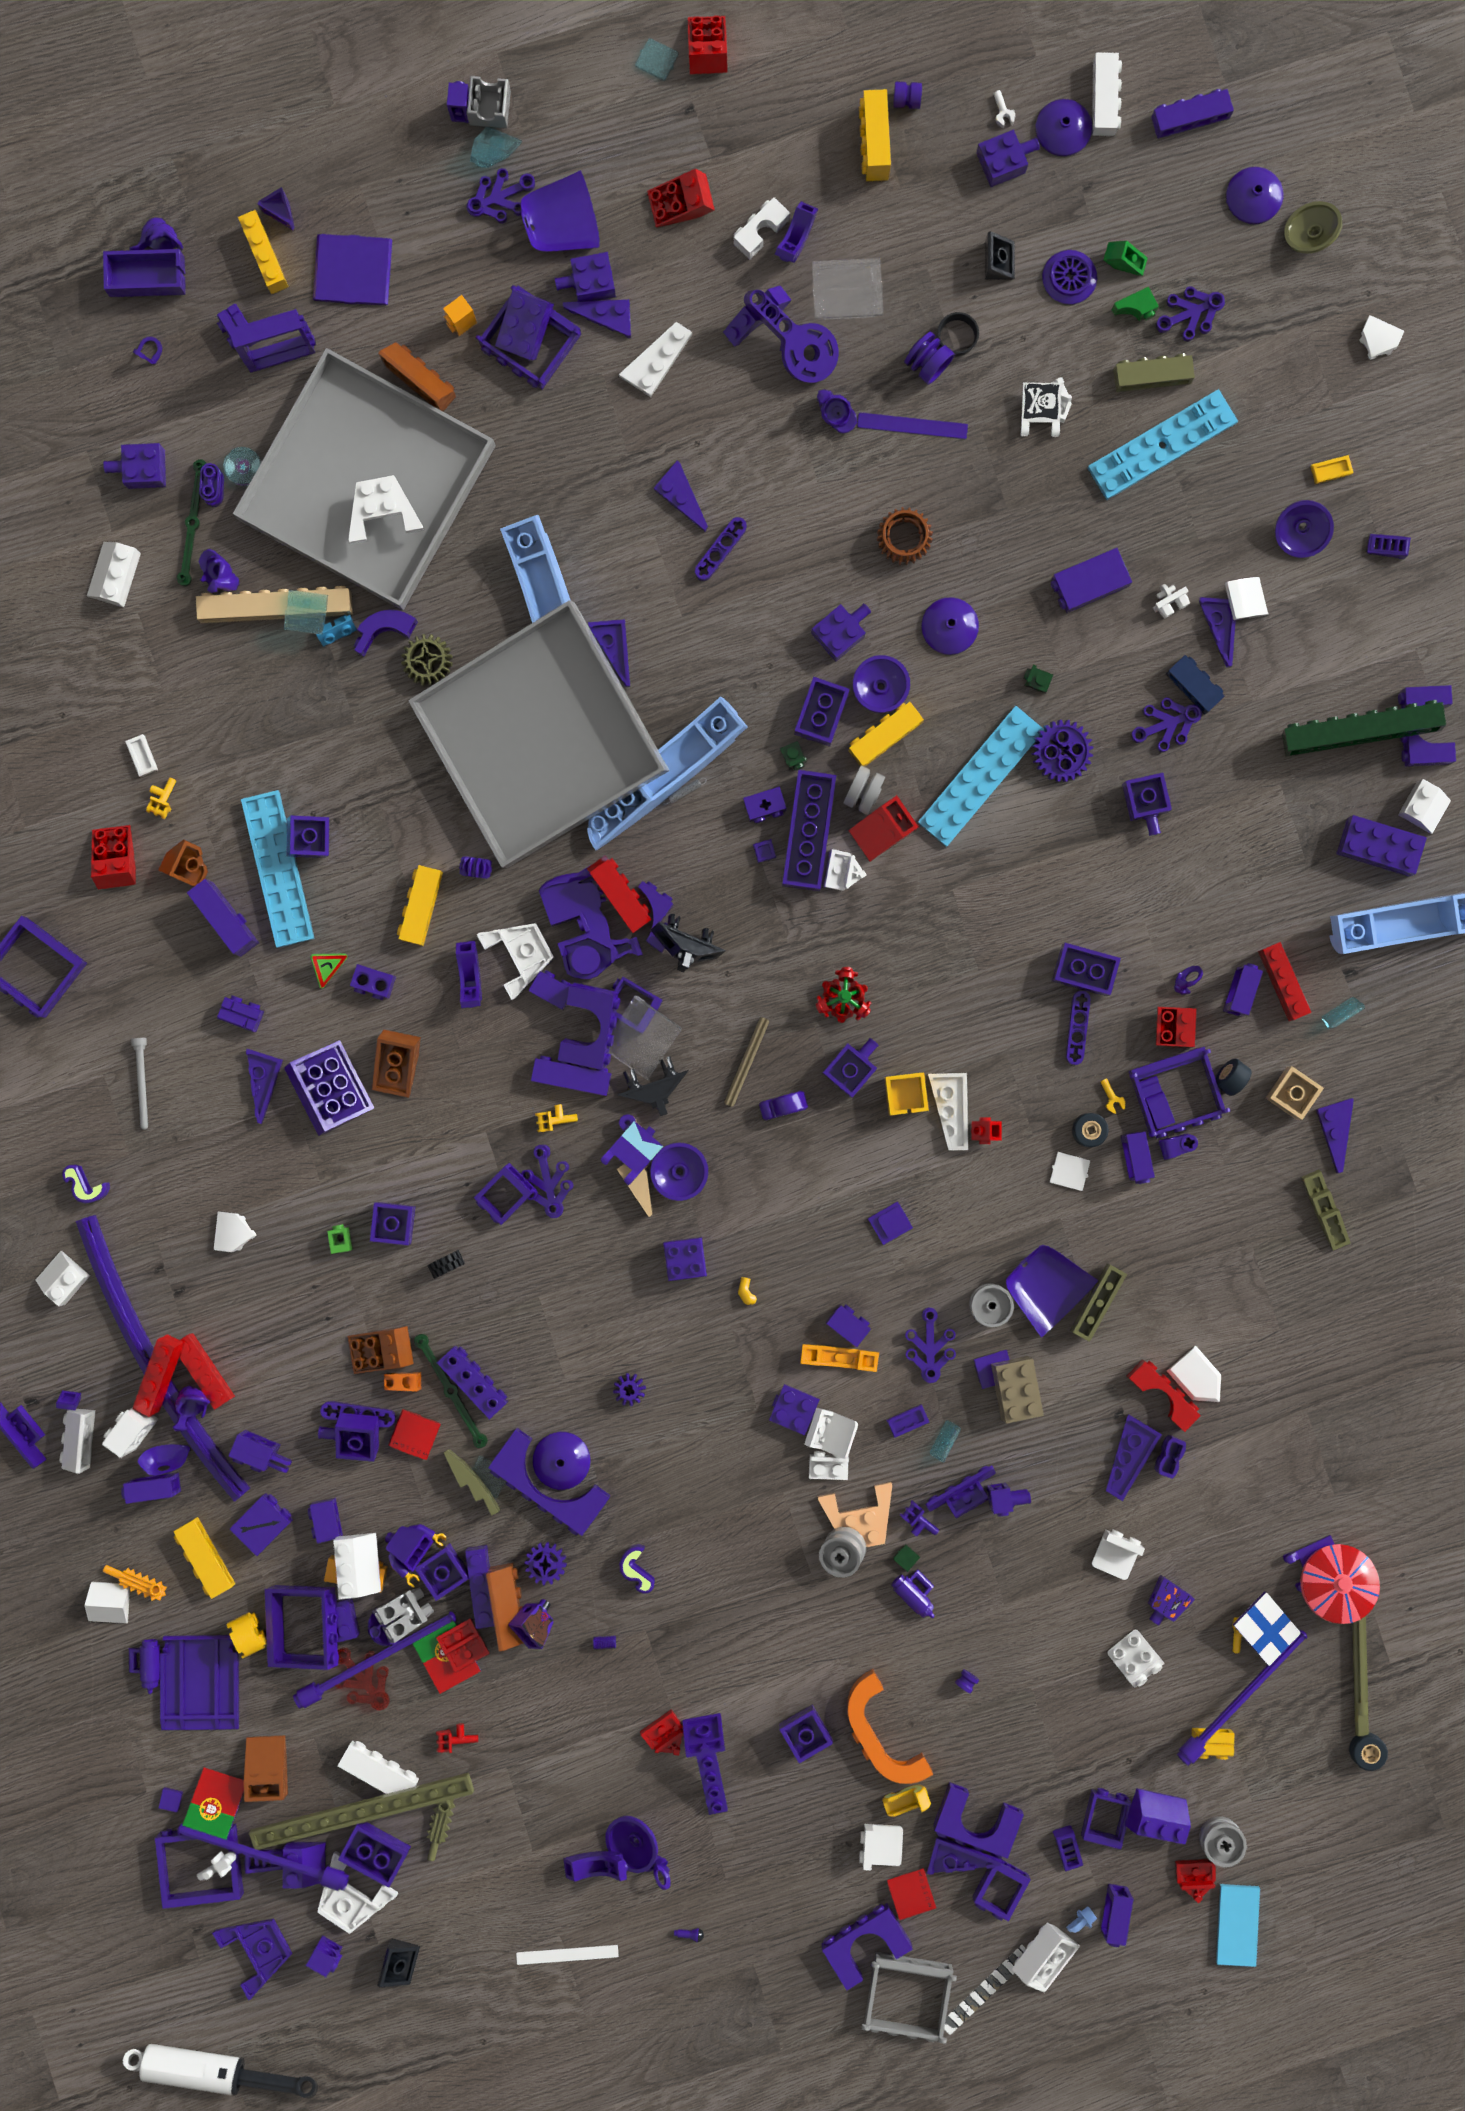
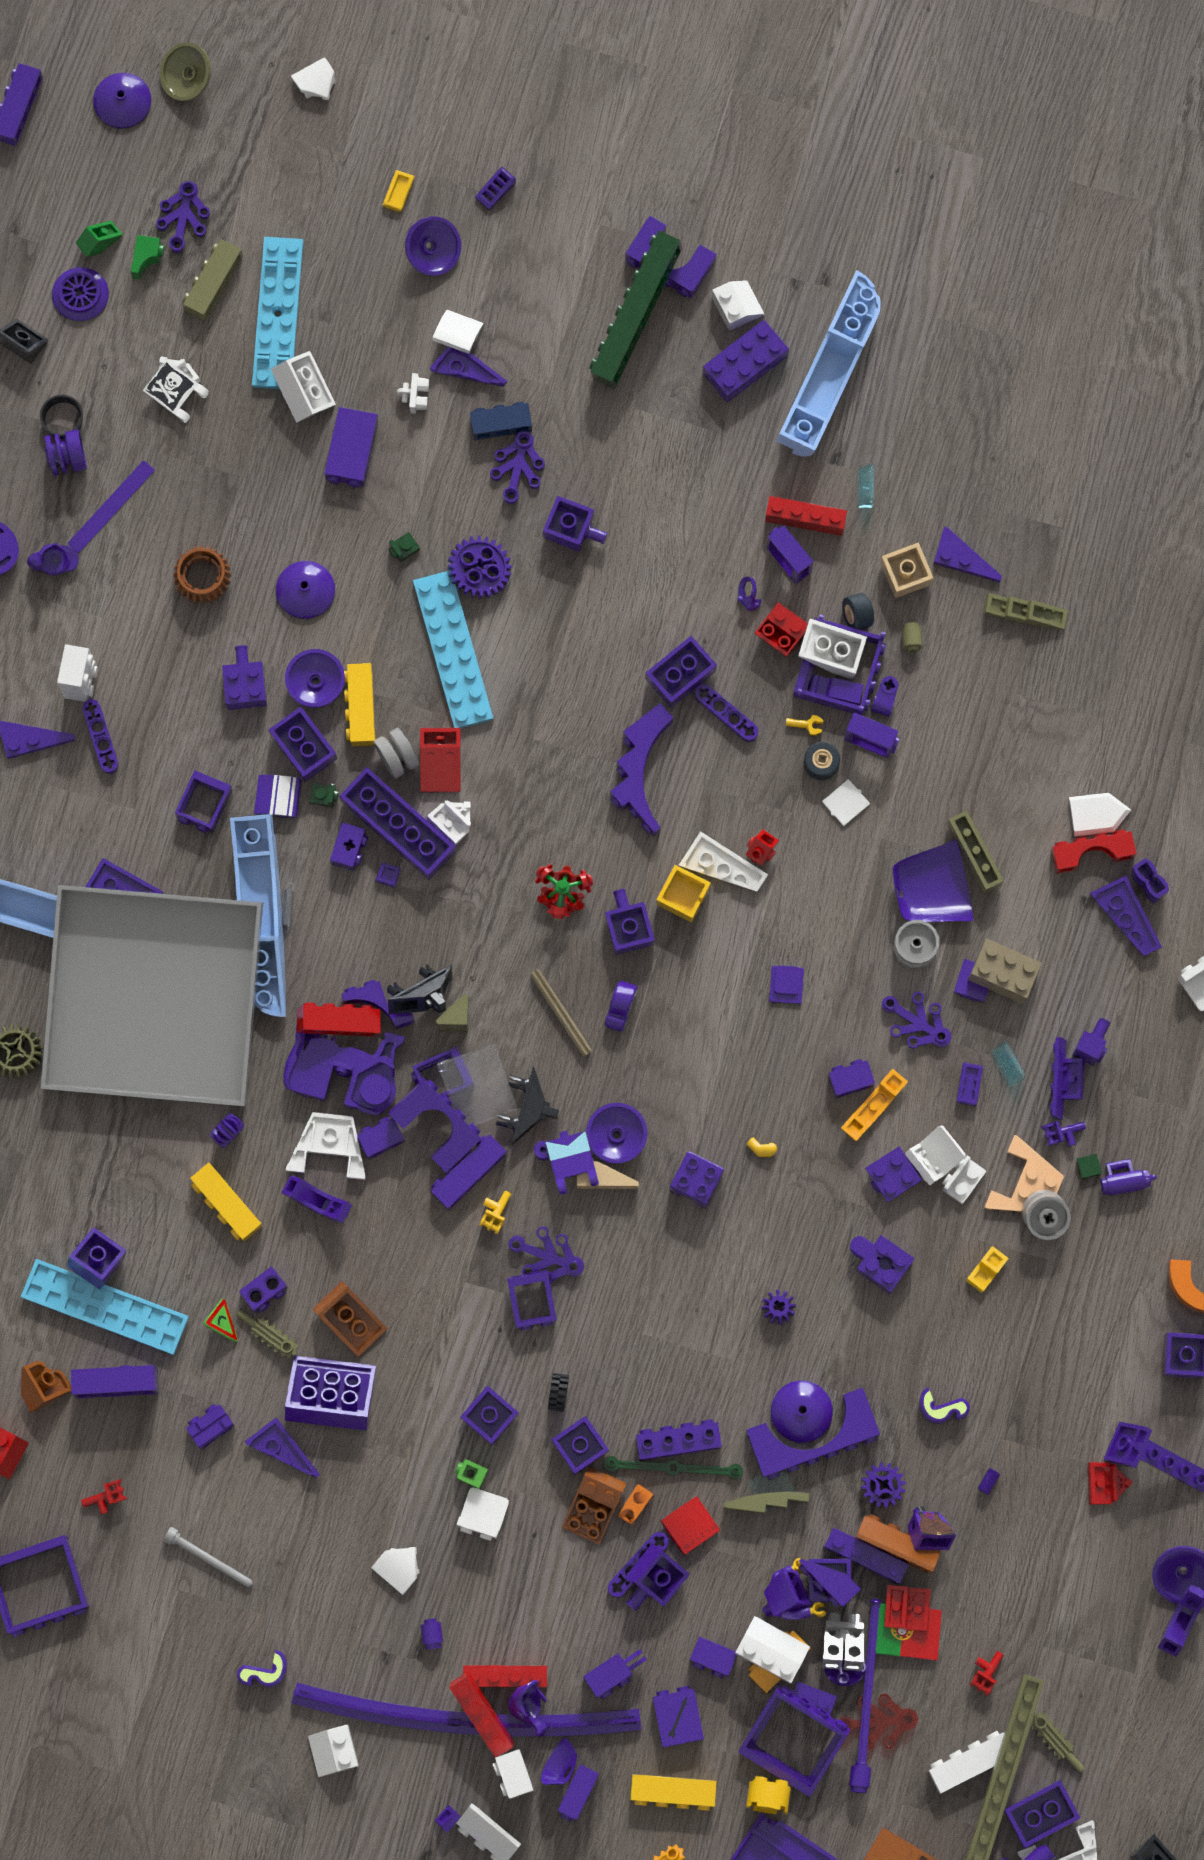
camera: 60 degrees left, 10 degrees down
(140, 974) = (109, 1494): none -> red arm
(198, 1292) = (431, 1634): none -> dark purple brick
(314, 1269) = (483, 1514): none -> white bracket
(342, 1010) = (261, 1329): none -> olive piece
(416, 1309) = (580, 1445): none -> dark purple brick
(439, 1582) = (835, 1583): none -> dark purple slope
(685, 983) = (456, 1017): none -> olive slope
(718, 1446) = (881, 1262): none -> dark purple brick
(734, 647) = (208, 782): none -> dark purple window
(755, 494) = (77, 673): none -> white brick
(767, 721) = (277, 796): none -> dark purple slope
(769, 1531) = (987, 1269): none -> yellow slope
(1011, 974) = (641, 738): none -> dark purple arch
(1114, 507) = (303, 386): none -> white slope
(1188, 1077) = (832, 648): none -> white slope
(1241, 1134) = (912, 637): none -> olive brick

